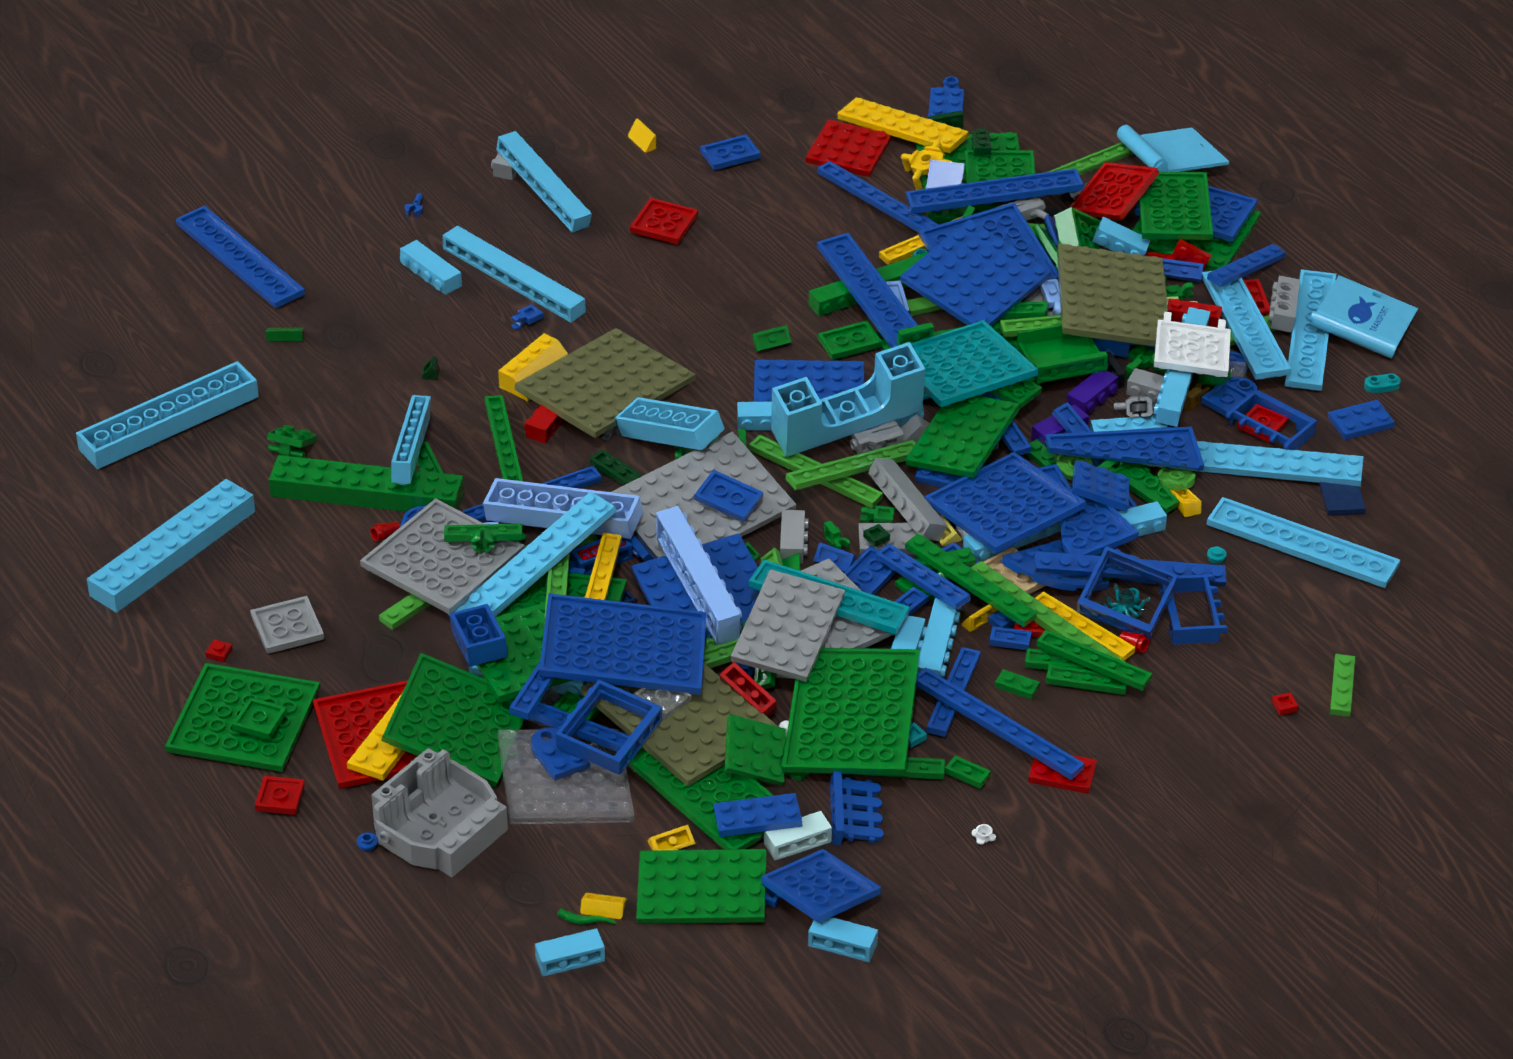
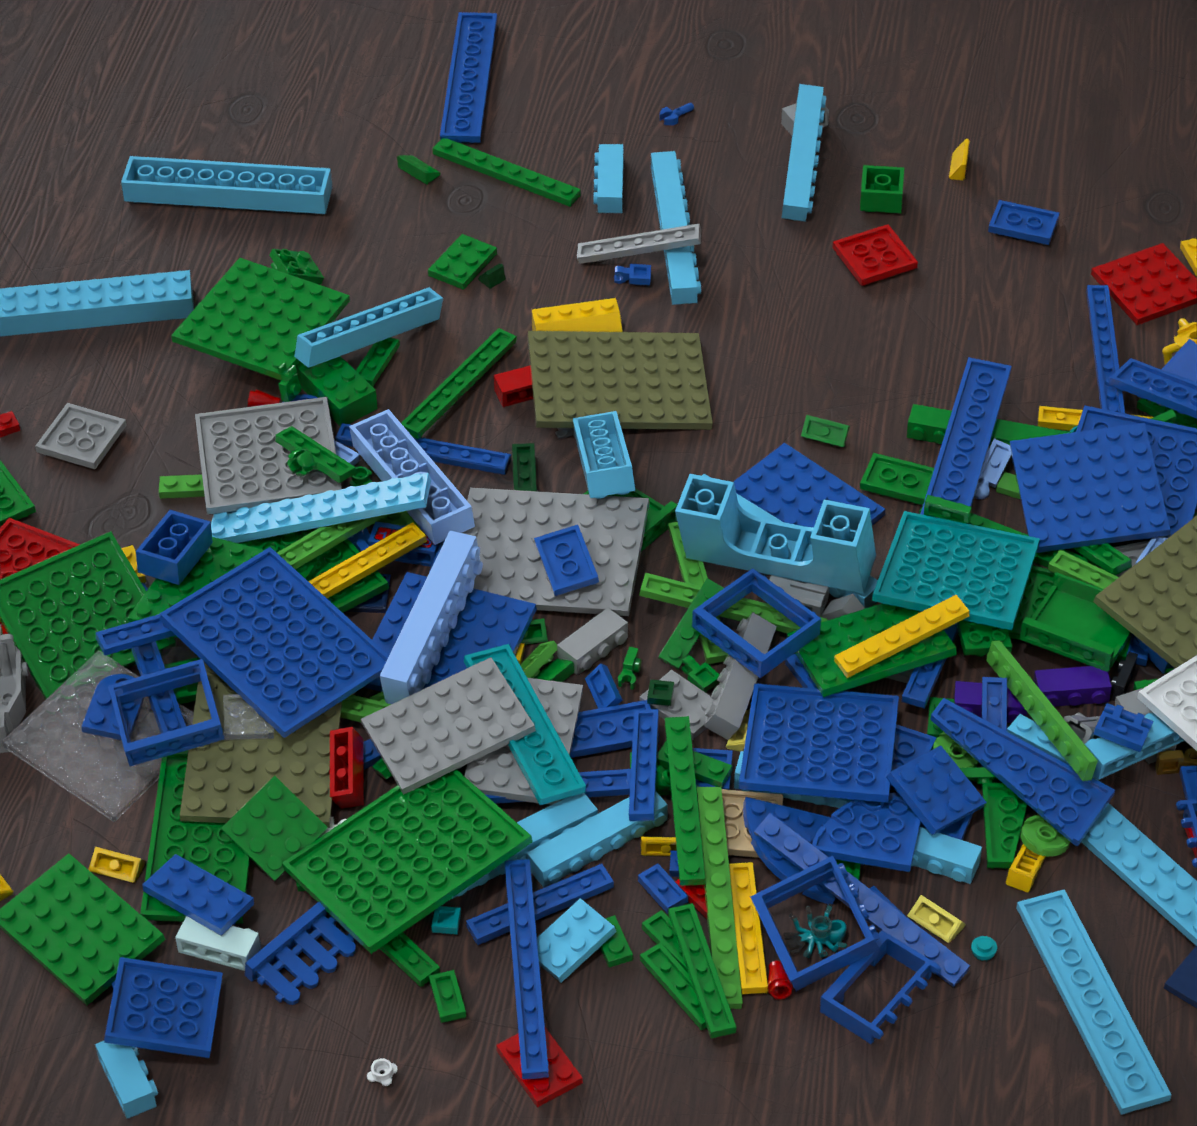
camera: 45 degrees right, 5 degrees up
(327, 476) = (257, 316): none -> green plate
(349, 302) = (507, 172): none -> green plate
(397, 373) = (462, 261): none -> green plate
(401, 506) = (290, 384): none -> green plate
(512, 293) = (639, 243): none -> light grey plate
(621, 178) = (882, 189): none -> green brick
(845, 487) = (685, 635): none -> green plate
(891, 476) = (737, 647): none -> blue window
(986, 413) = (901, 636): none -> yellow plate
(1000, 691) = (572, 939): none -> medium azure plate
(1107, 407) = (1042, 711): none -> bright green plate
(1169, 384) = (1123, 727): none -> blue plate
(1174, 554) = (936, 919): none -> light yellow slope

